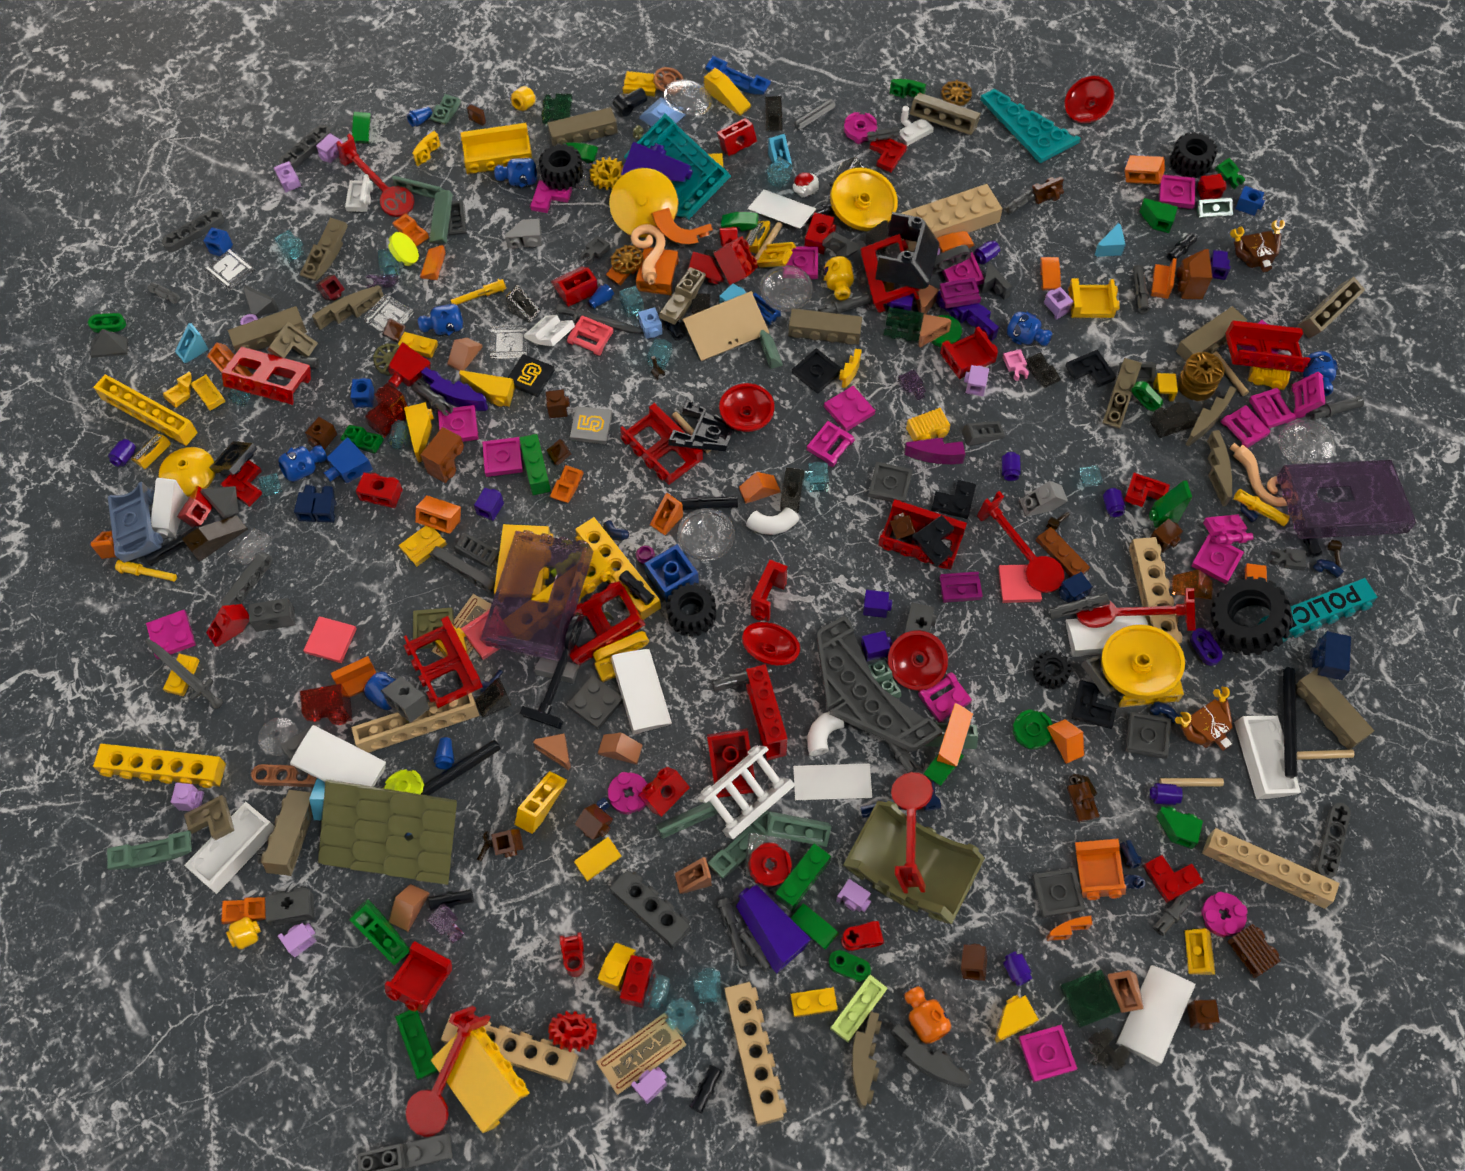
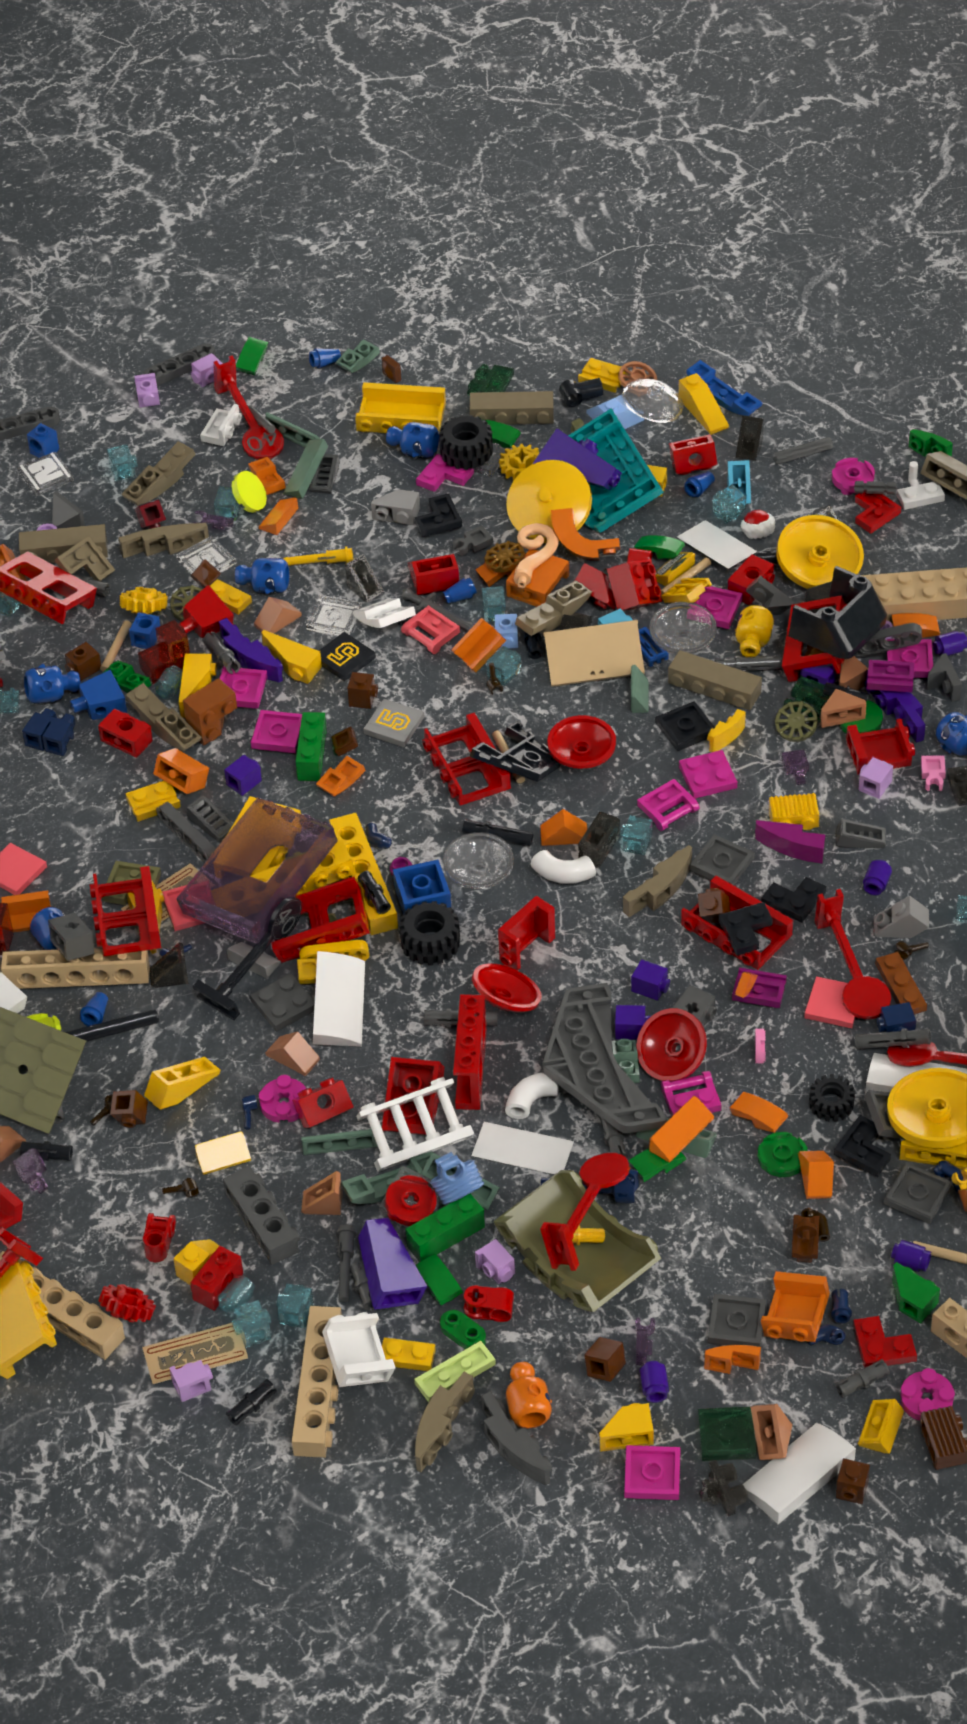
camera: 20 degrees right, 15 degrees down
(342, 411) = (116, 645): none -> tan bar
(352, 366) = (143, 600): none -> yellow gear
(391, 183) = (262, 420): none -> dark grey bar
(404, 470) = (163, 721): none -> dark tan slope
(425, 146) = (313, 394): yellow slope -> none
(523, 98) = (453, 362): yellow head -> none
(554, 748) = (218, 1033): nougat slope -> none
(563, 235) = (444, 517): none -> black plate
(580, 898) = (188, 1186): none -> dark brown hand
(594, 822) = (232, 1113): reddish brown brick -> none
(636, 341) = (478, 644): none -> orange panel
(667, 514) = (443, 831): orange slope -> none
(749, 160) = (698, 484): none -> blue cone
(778, 1020) = (356, 1350): none -> white panel
(801, 837) = (458, 1185): none -> medium blue piece
(852, 515) = (666, 880): none -> dark tan slope
(899, 346) = (796, 721): none -> olive wheel
(900, 855) = (590, 1235): none -> yellow axle
(919, 314) = (829, 688): none -> black axle
(954, 584) = (745, 984): none -> orange tile
(978, 635) = (760, 1046): none -> bright pink tile
(996, 938) = (643, 1344): none -> clear purple plate
(1003, 697) = (761, 1112): none -> orange slope

